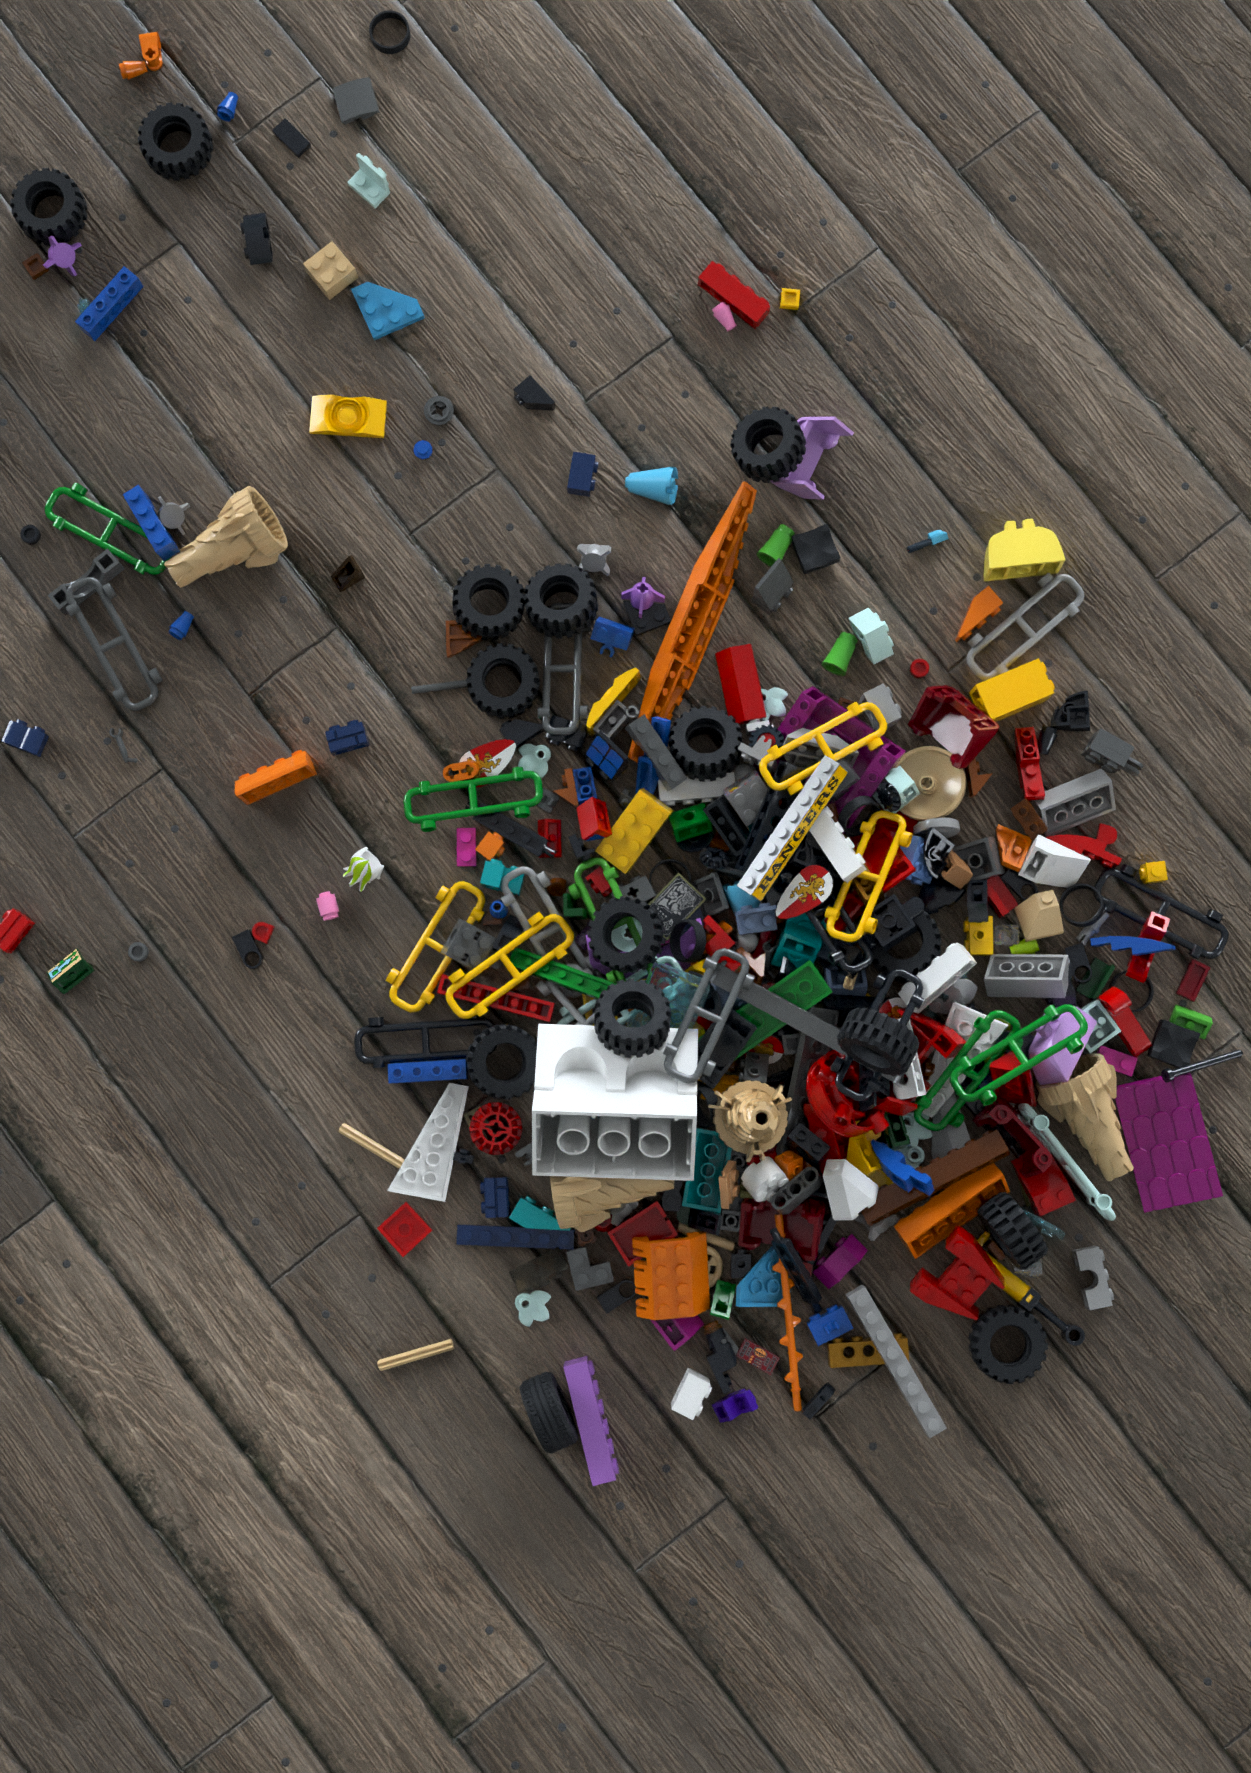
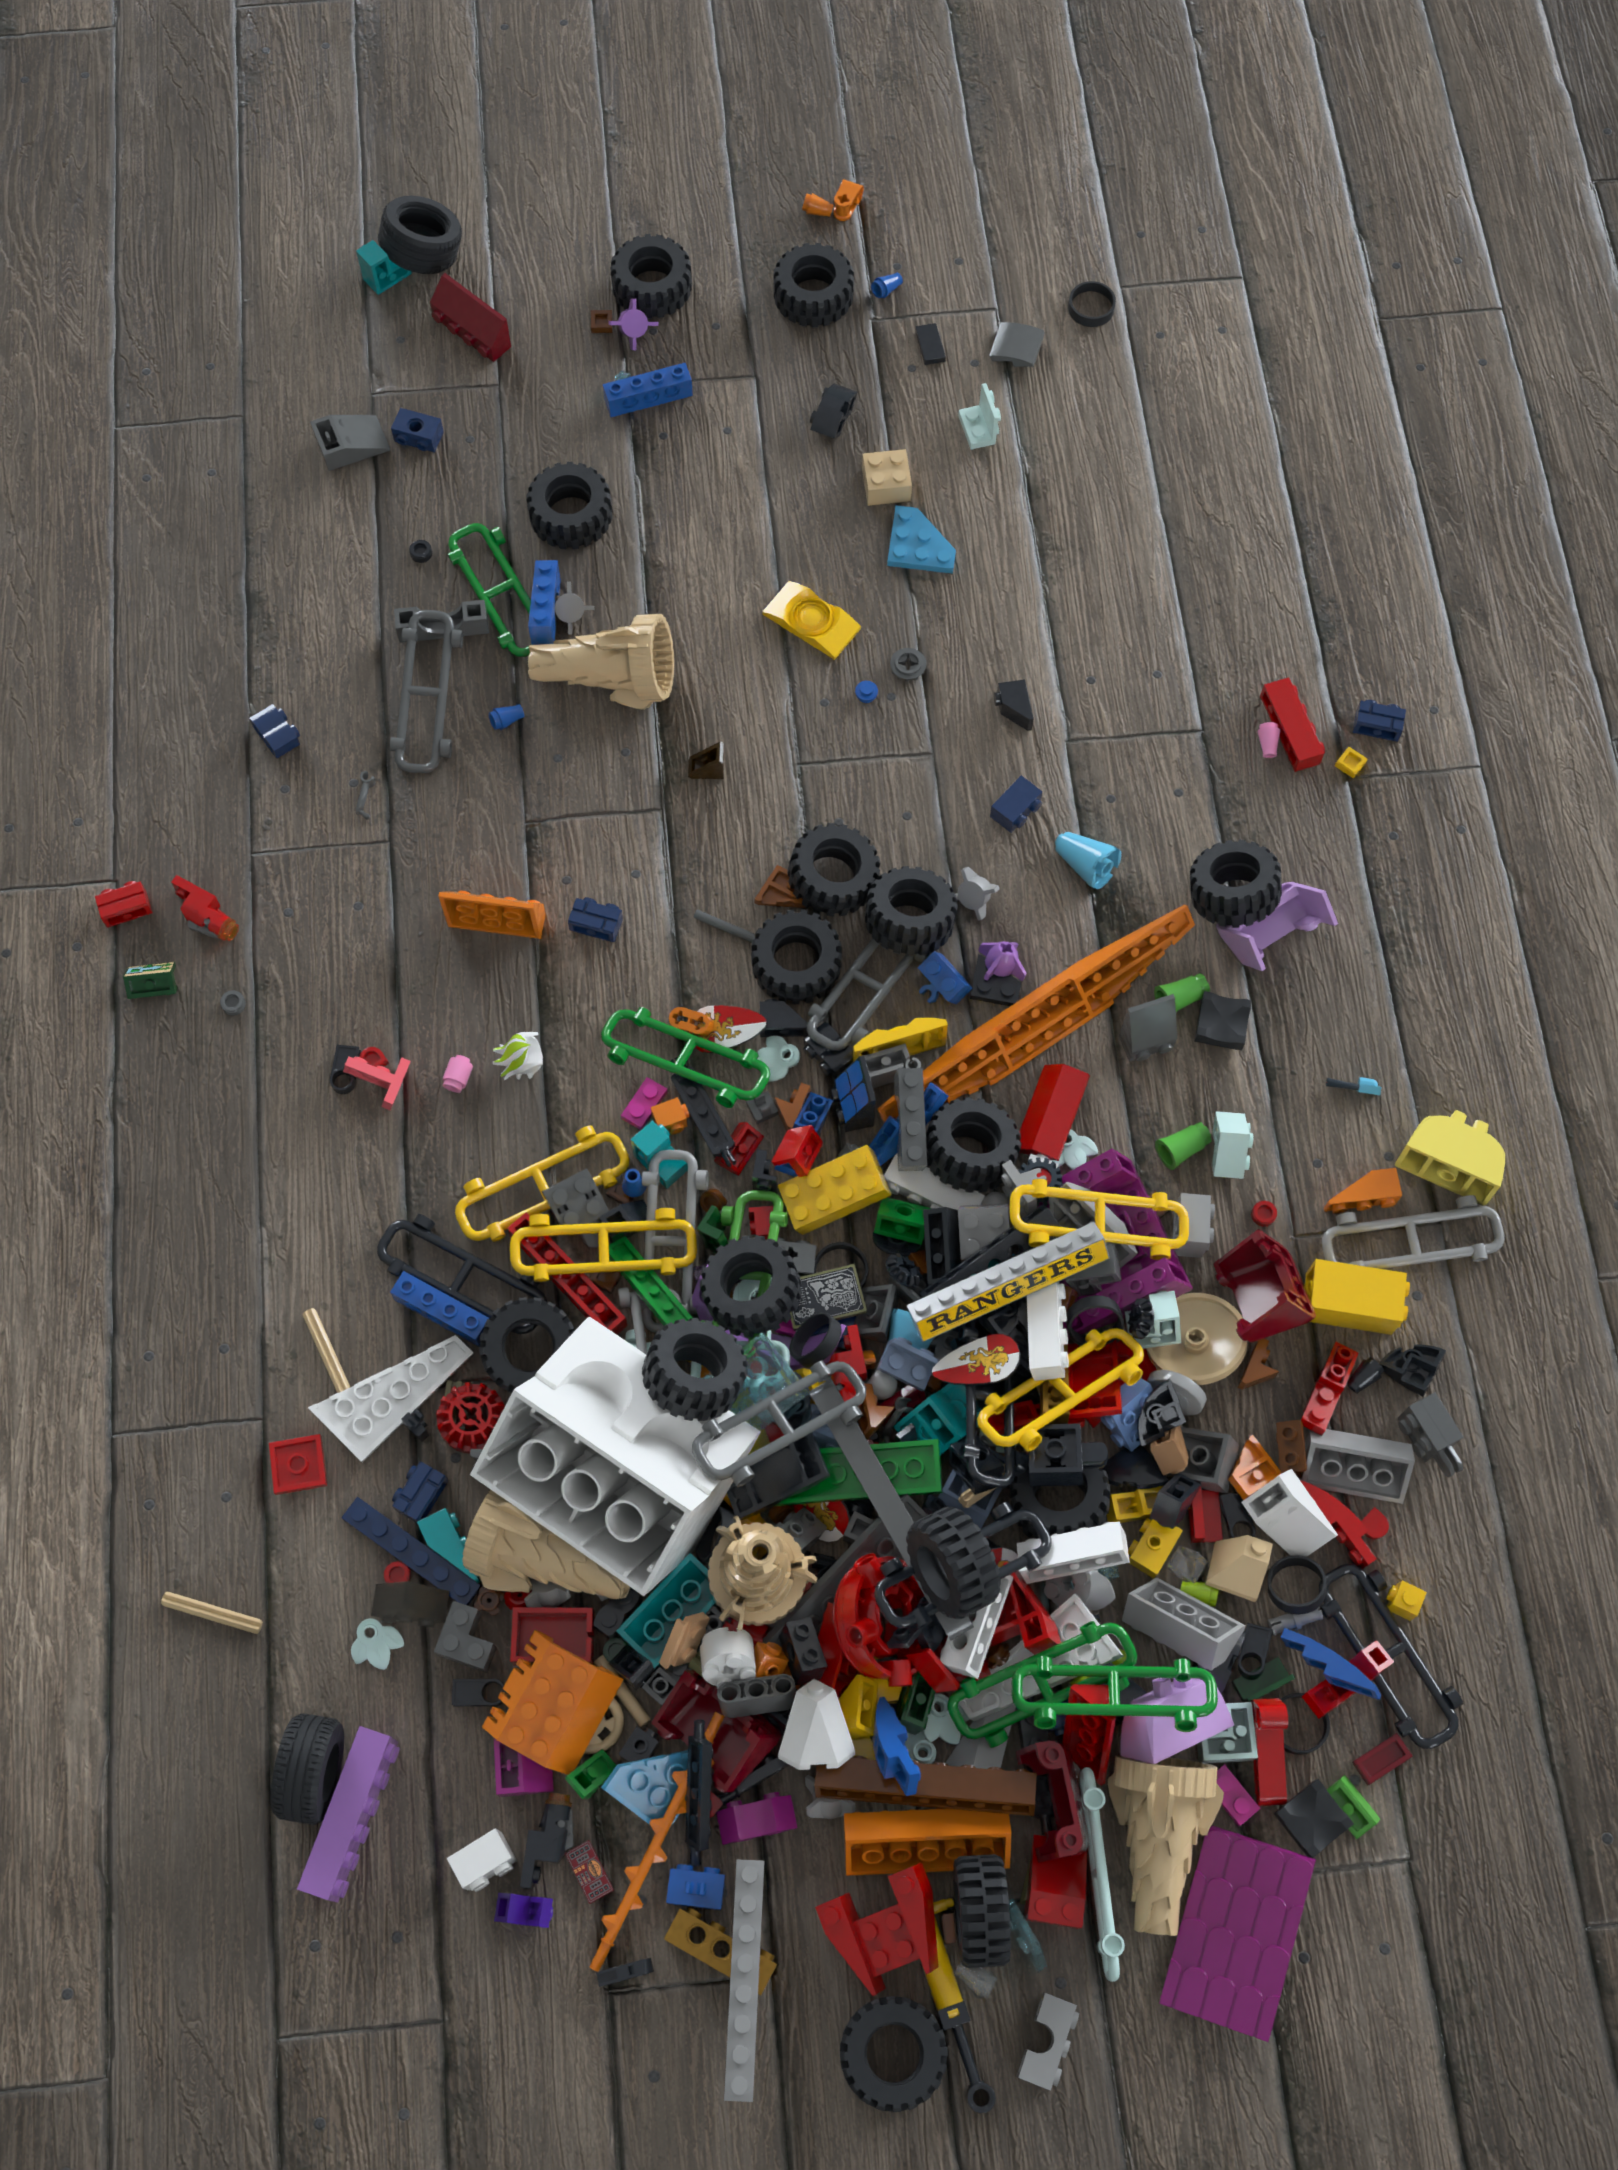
camera: 30 degrees right, 15 degrees down
(71, 902) = (203, 911): none -> red plate
(104, 414) = (565, 482): none -> black tyre
(278, 940) = (379, 1076): none -> coral bracket
(516, 1256) = (397, 1572): none -> red tile
(791, 255) = (1379, 720): none -> dark blue brick
(952, 917) = (1132, 1505): none -> yellow slope
(1168, 1075) = (1285, 1846): black bar -> none

